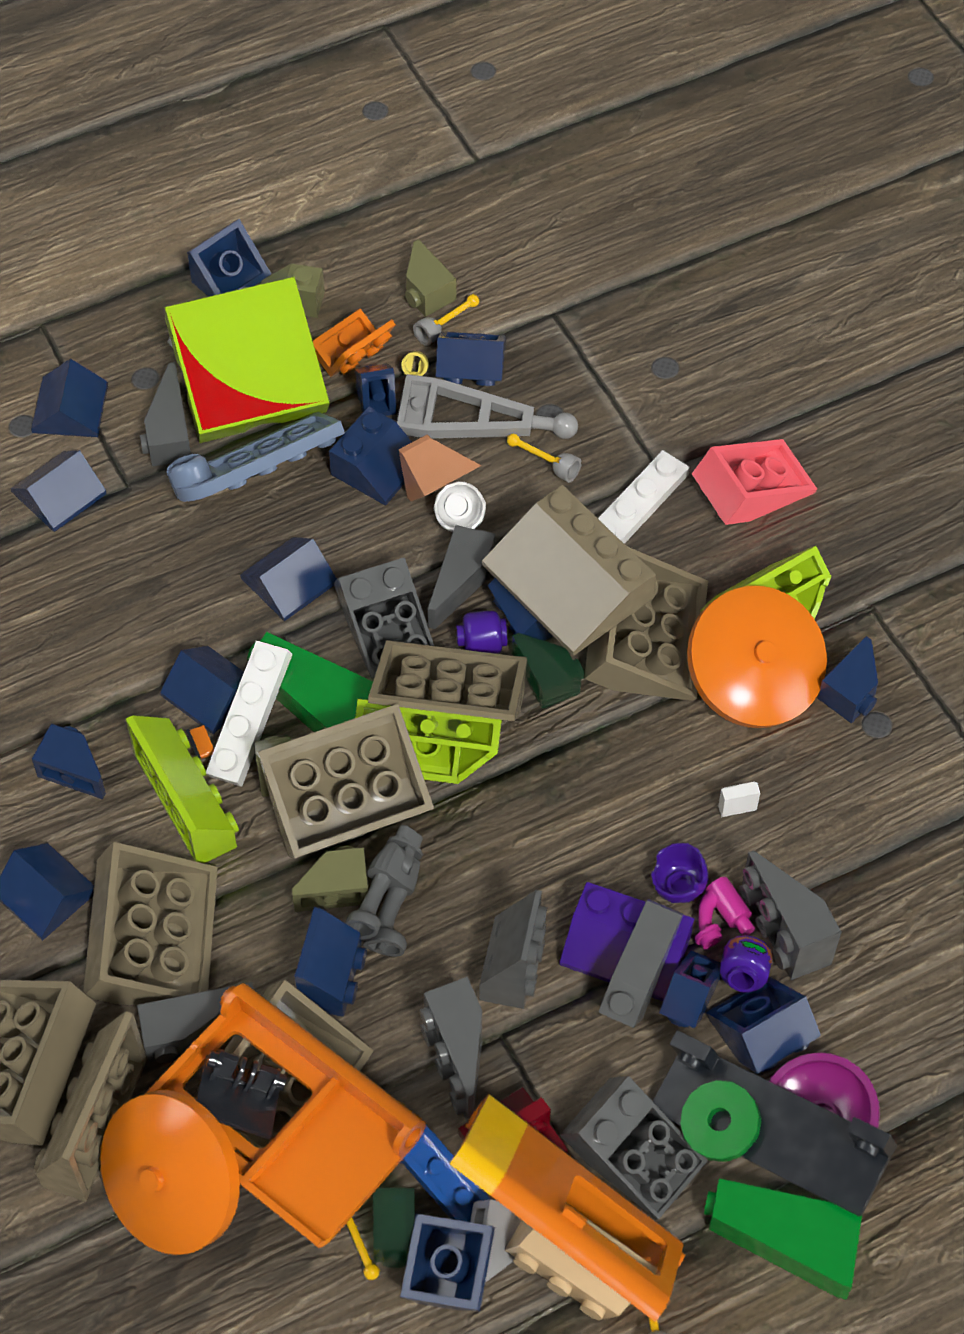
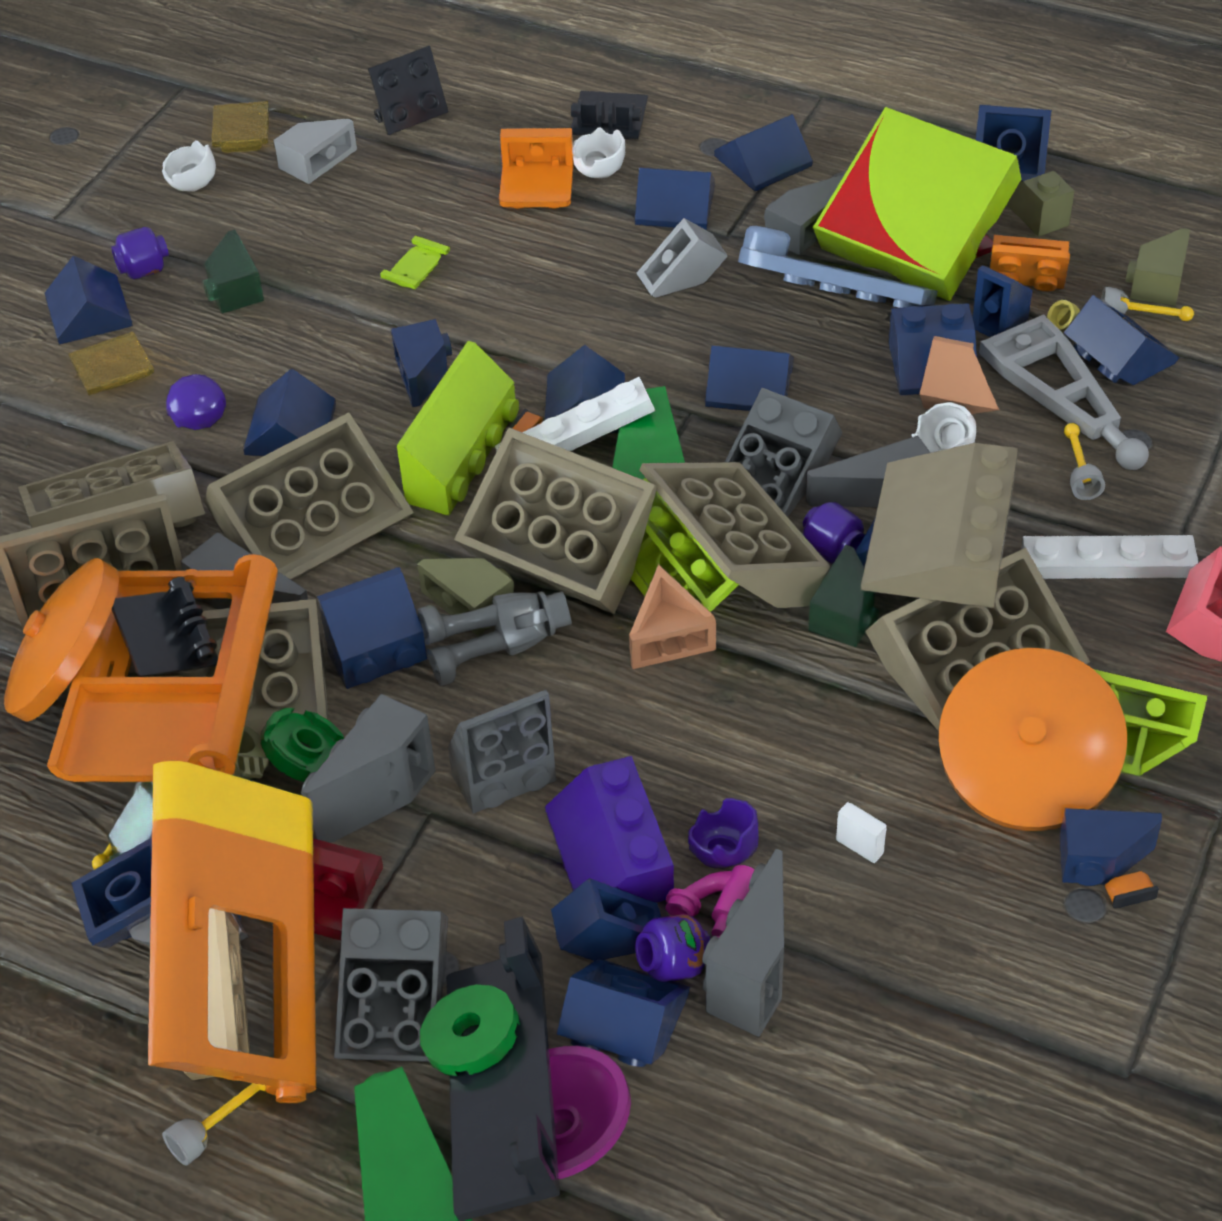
camera: 55 degrees right, 10 degrees down
(137, 533) = (682, 260): none -> light grey slope
(411, 1071) = (282, 745): none -> green tile
(481, 782) = (670, 624): none -> nougat slope
(641, 964) = (566, 855): dark grey slope -> none
(888, 693) = (1131, 889): none -> piece

